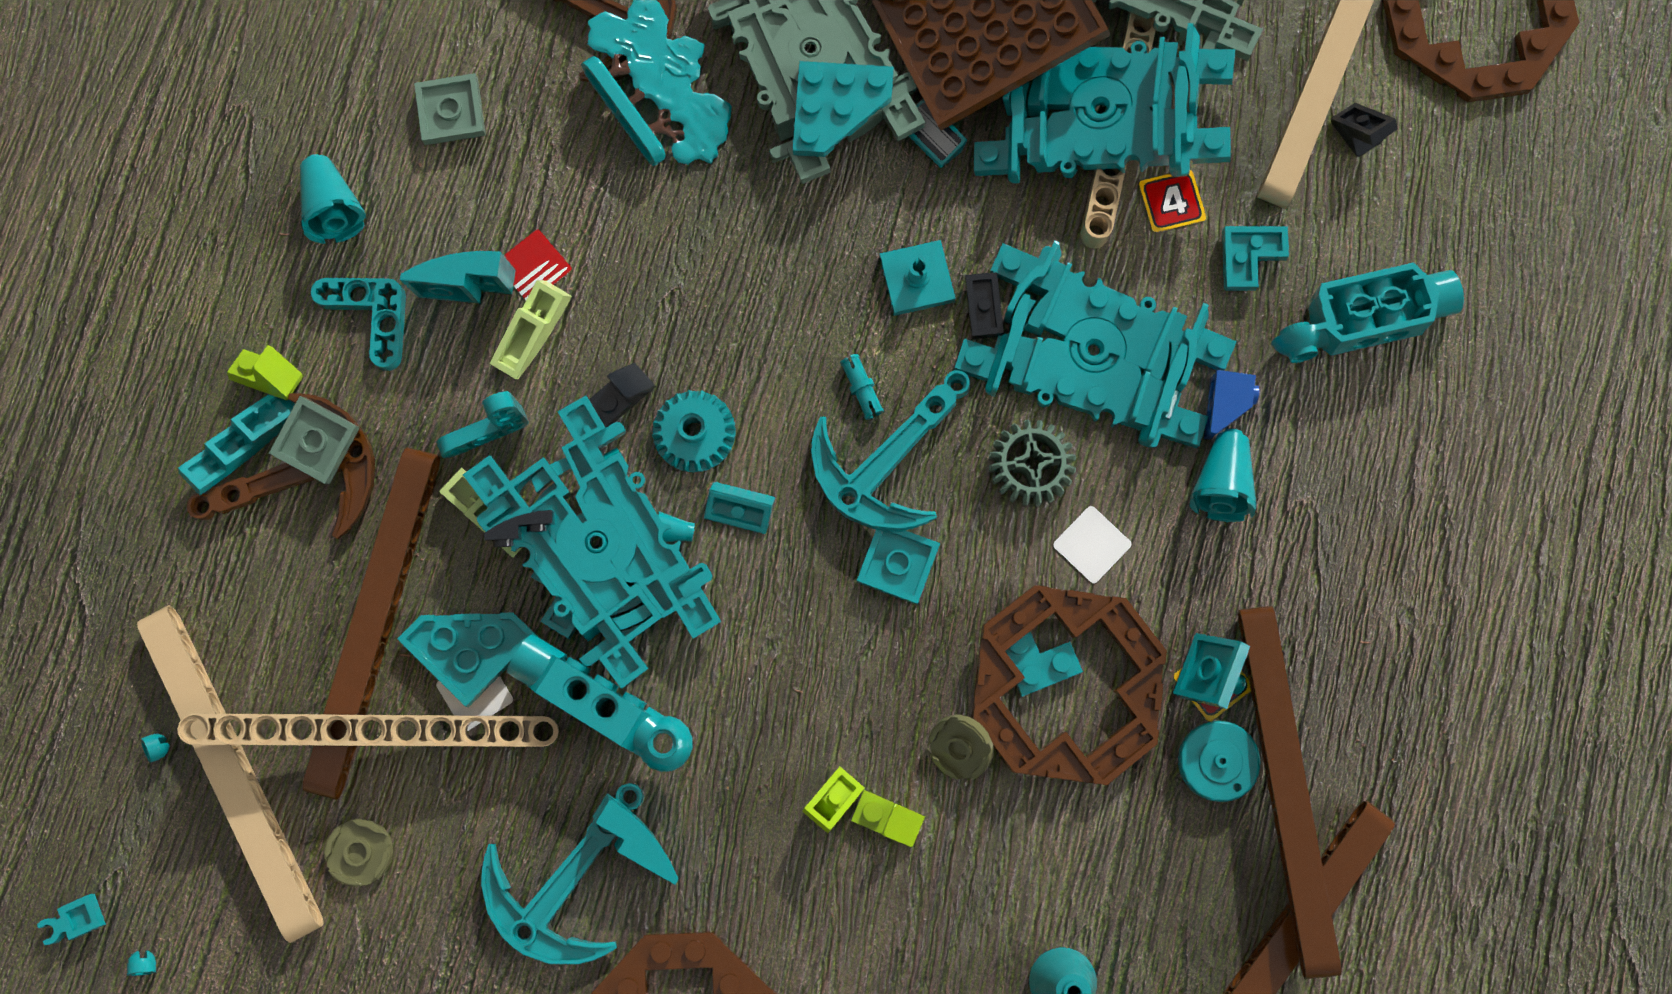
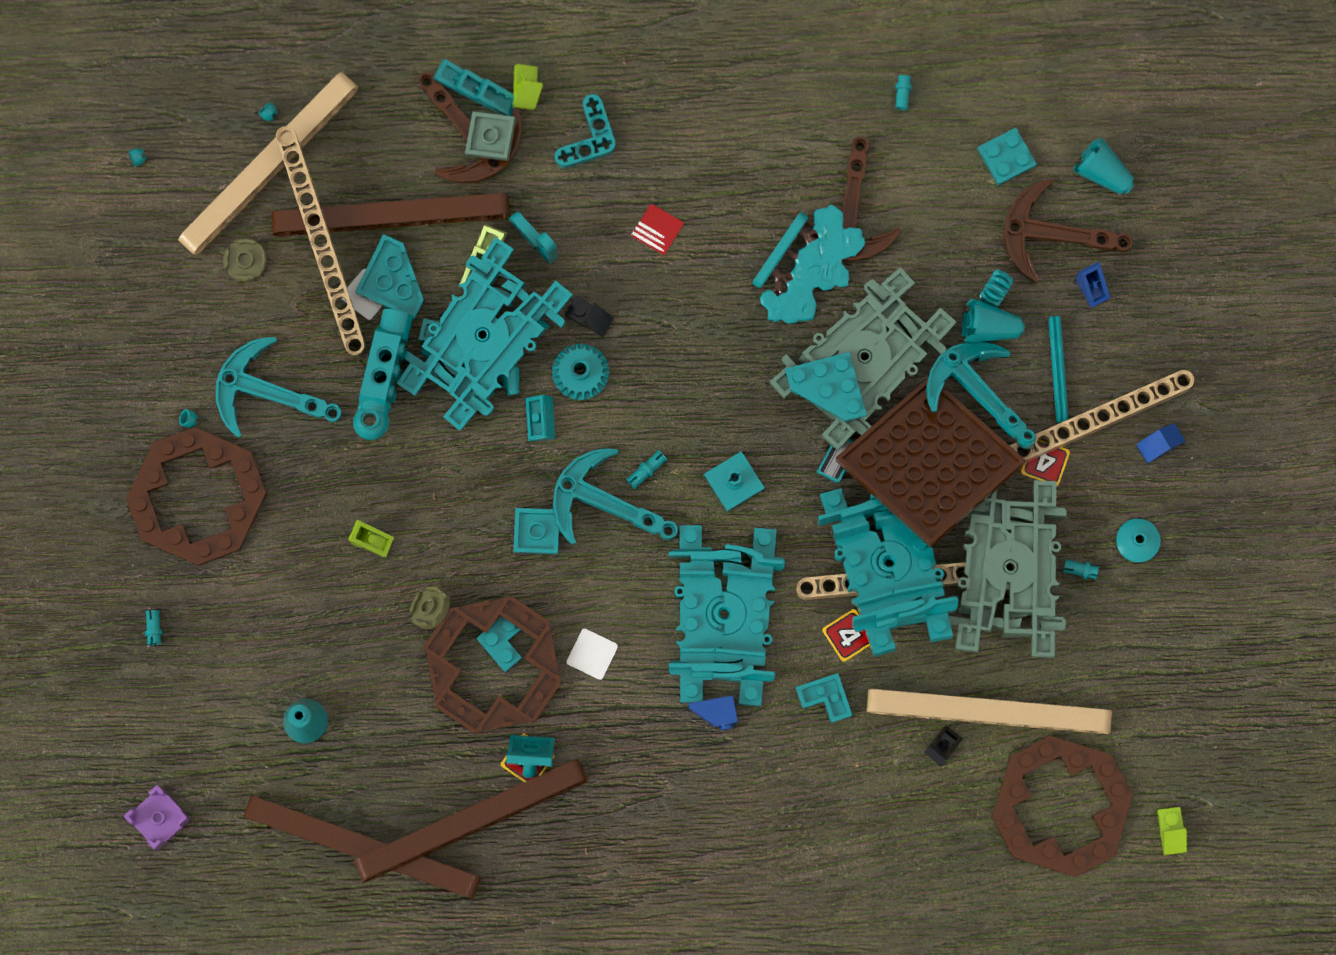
camera: 70 degrees right, 0 degrees up
(75, 919) = (151, 107): teal plate -> none
(327, 202) = (652, 82): teal cone -> none
(449, 109) = (744, 136): sand green plate -> none
(461, 276) = (629, 188): teal slope -> none
(510, 530) = (469, 279): black slope -> none
(530, 328) = (613, 243): yellowish green slope -> none
(634, 838) = (307, 425): teal slope -> none
(888, 818) = (371, 579): lime slope -> none
(984, 305) = (728, 531): black plate -> none
(1045, 461) = (639, 613): sand green gear -> none
(1219, 761) = (475, 775): teal wheel -> none
(1226, 480) = (662, 724): teal cone -> none
(1371, 311) = (809, 787): teal brick -> none

